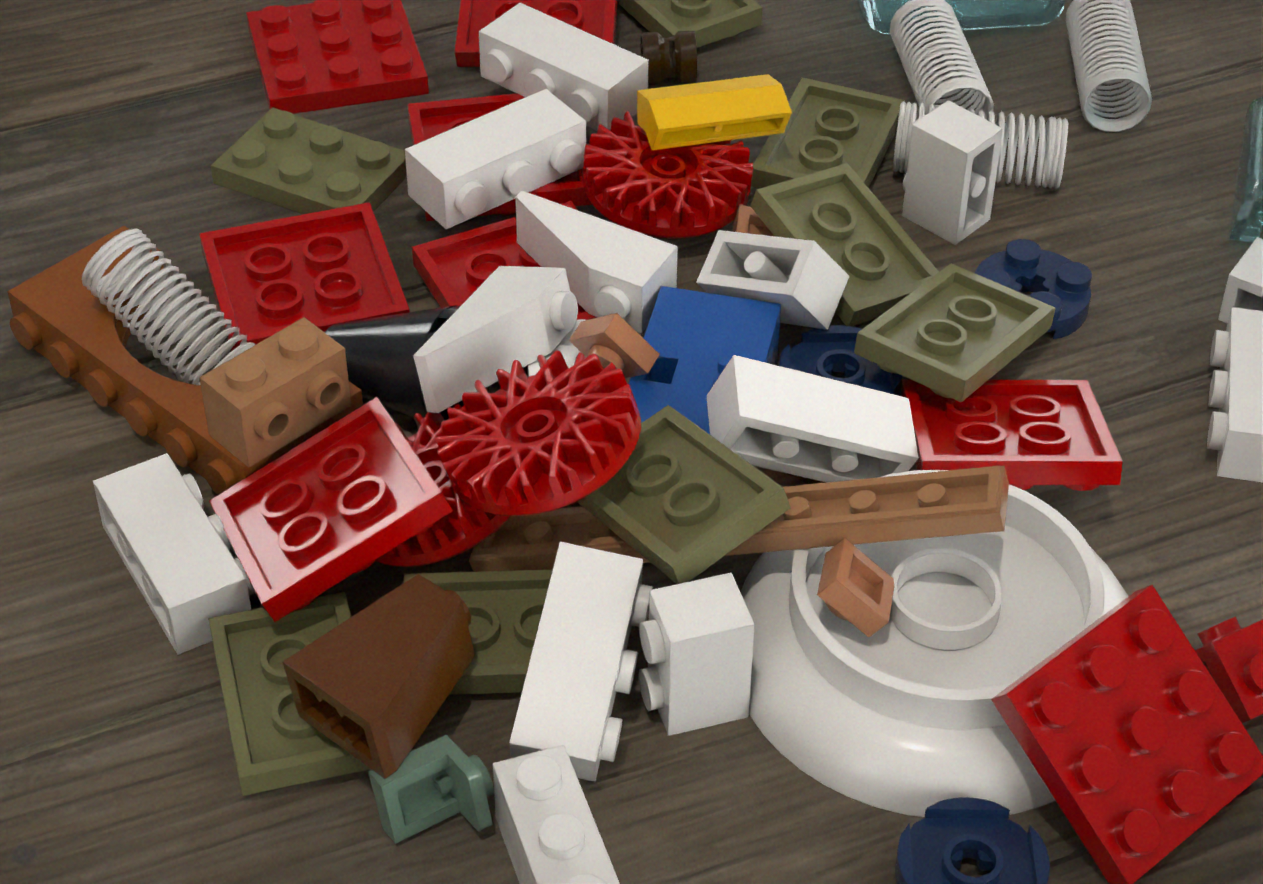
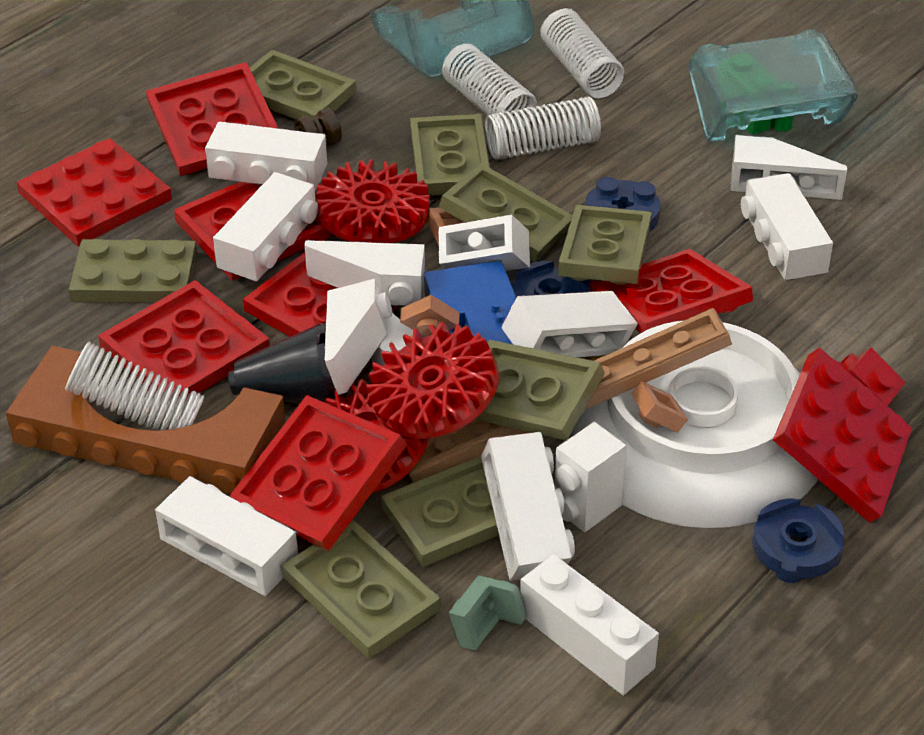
camera: 25 degrees left, 0 degrees up
(276, 391) = (244, 413): medium nougat brick -> none
(384, 672) = (421, 554): reddish brown slope -> none
(712, 111) = (385, 154): yellow piece -> none
(951, 171) = (542, 149): white brick -> none

